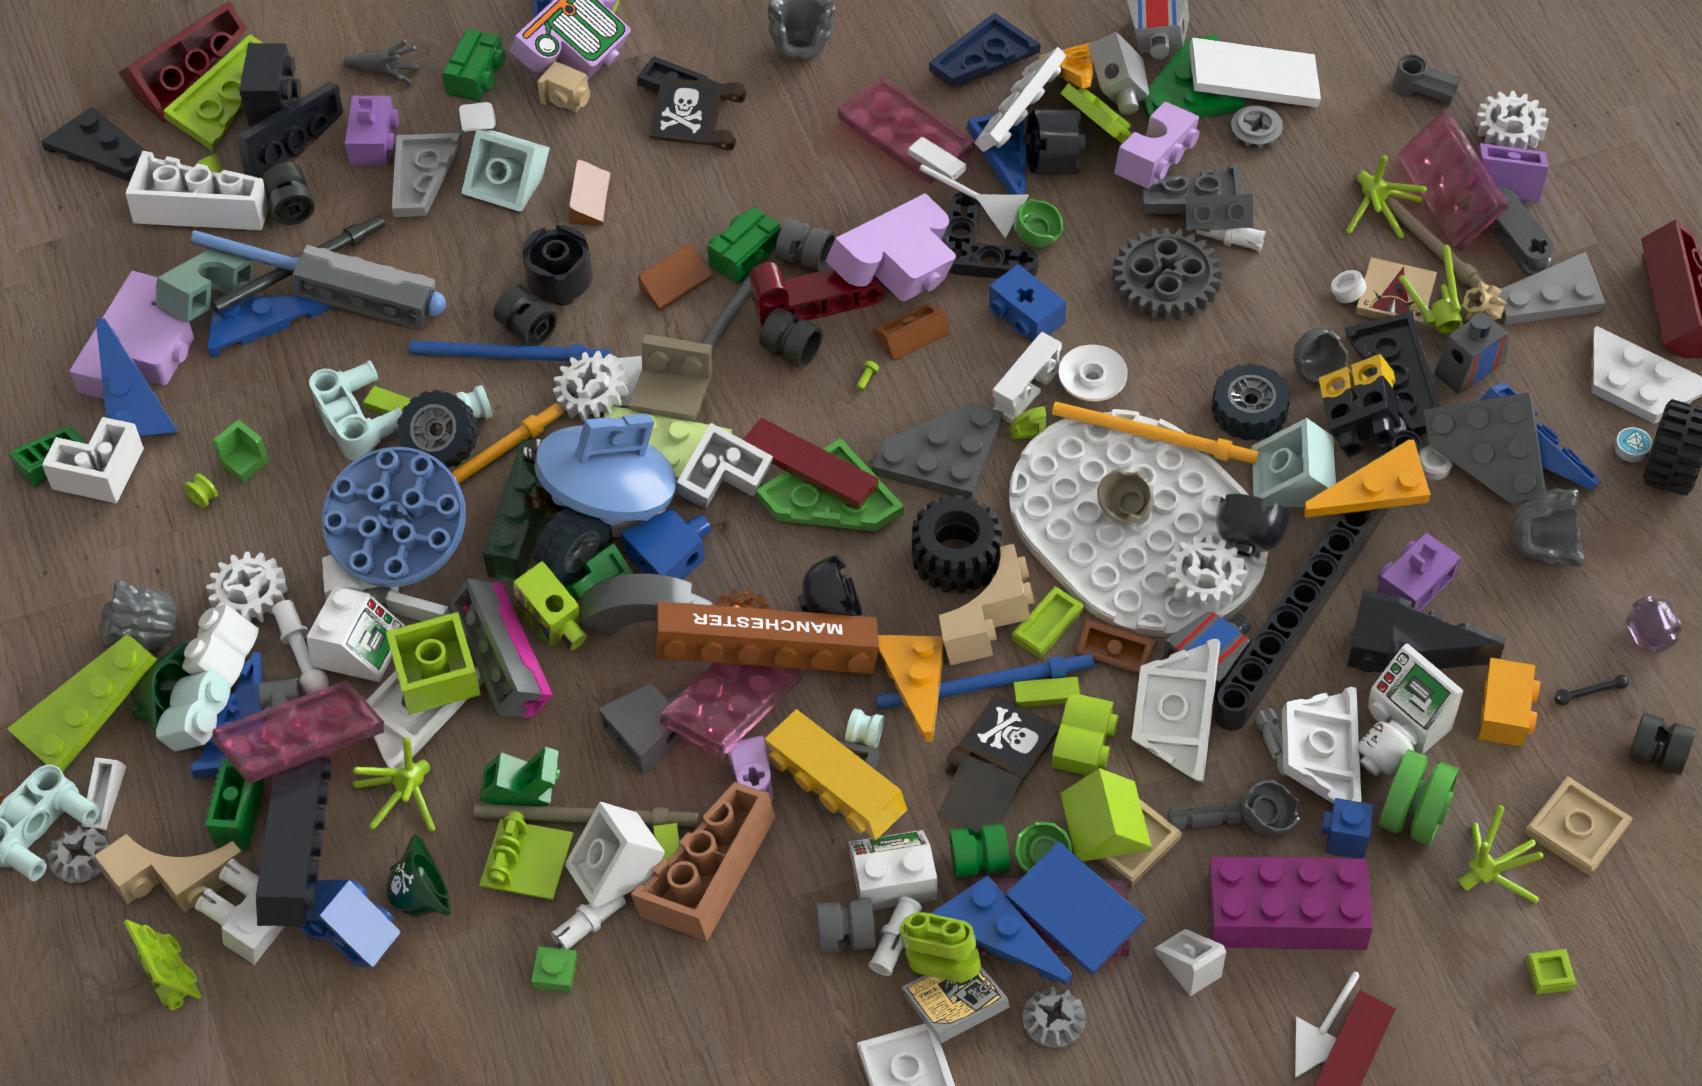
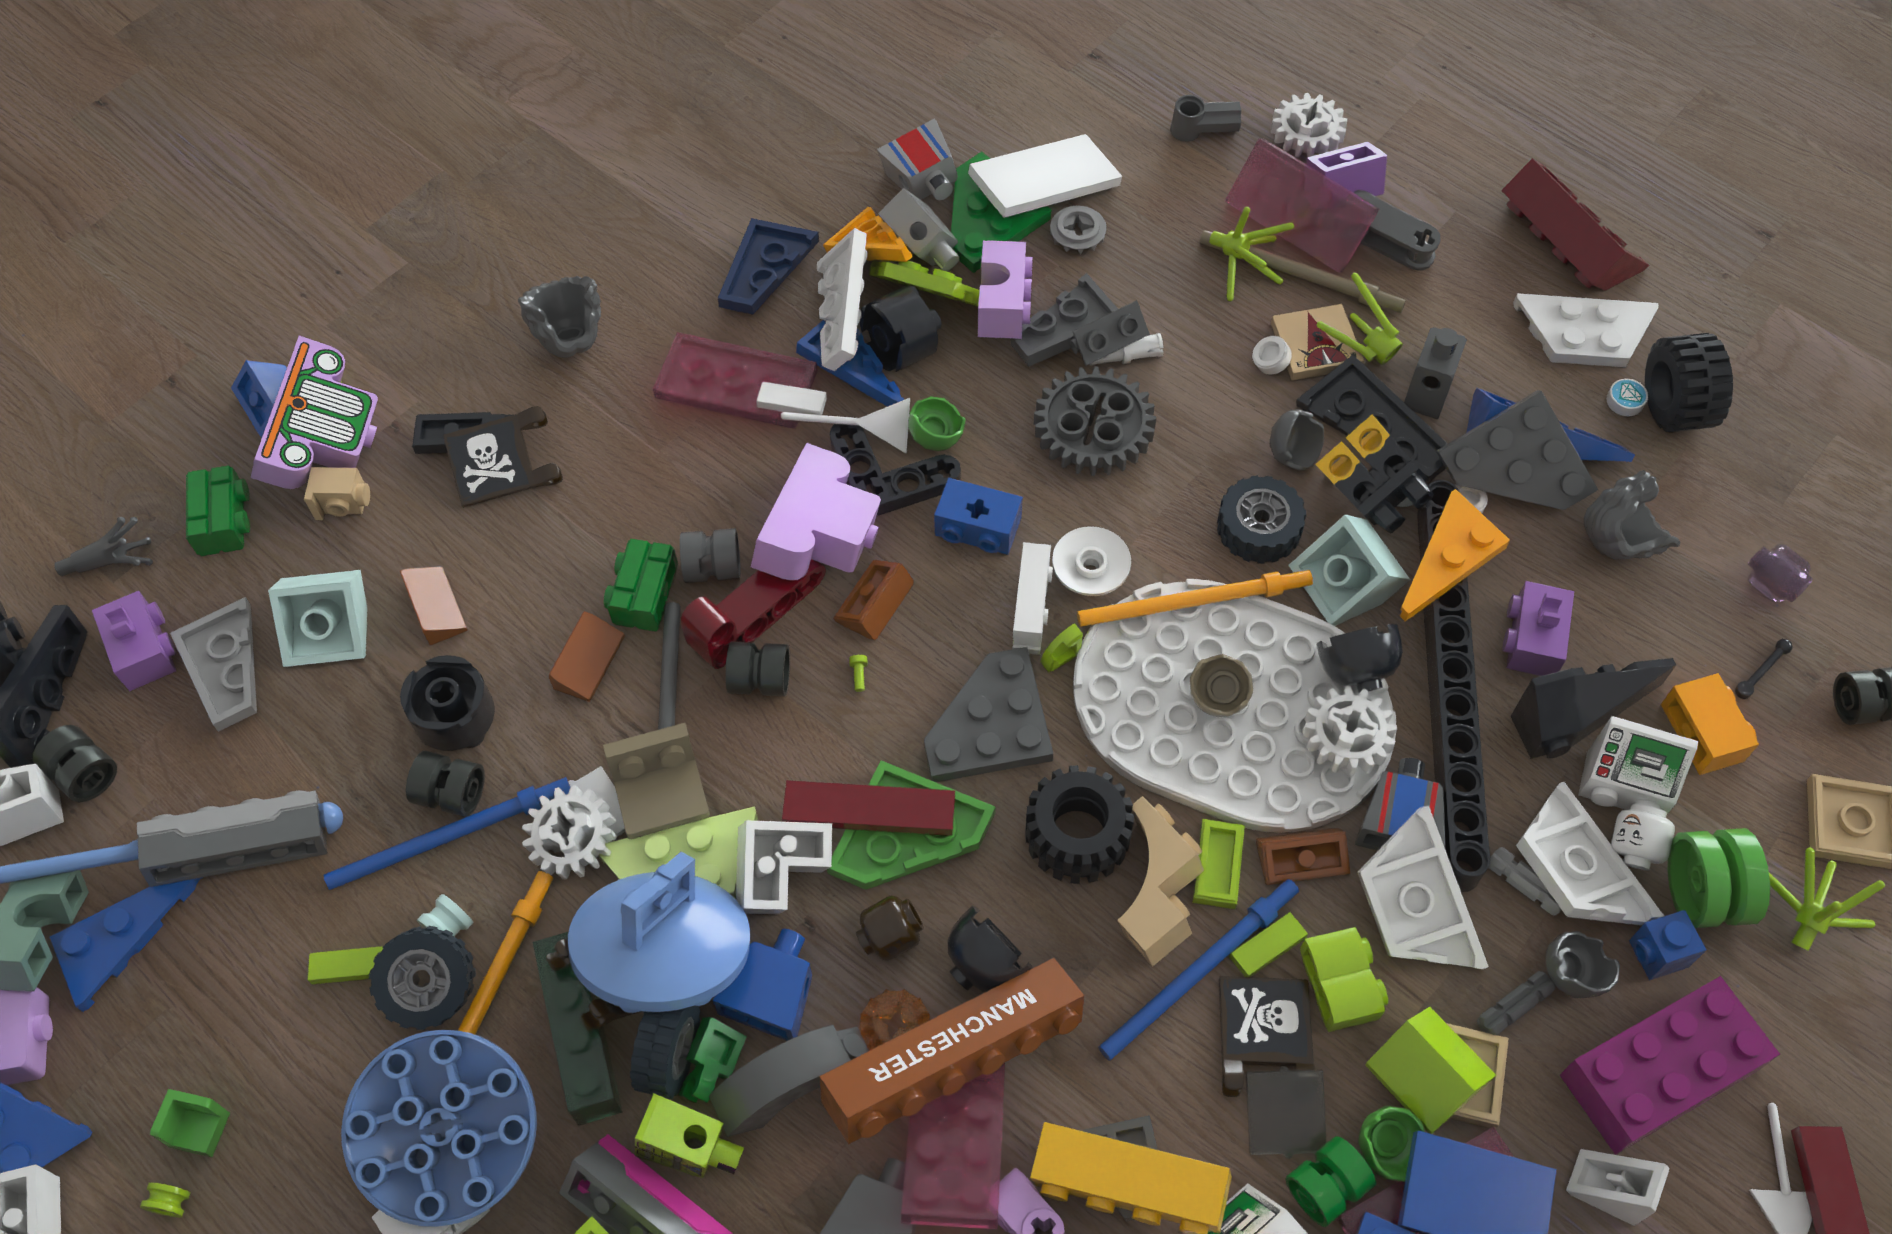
camera: 30 degrees left, 5 degrees up
(342, 413) = (292, 1009): light aqua piece -> none
(351, 236) = (180, 778): pearl dark grey bar -> none
(414, 607) = (521, 1216): white piece -> none
(477, 116) = (260, 573): white slope -> none
(775, 549) = (889, 928): none -> dark brown head
(864, 729) = (1117, 1097): light aqua wheel -> none
(917, 670) = (1123, 990): light orange wing -> none
(1484, 300) = (1417, 311): tan gear -> none
(1554, 293) = (1454, 278): light grey wing -> none

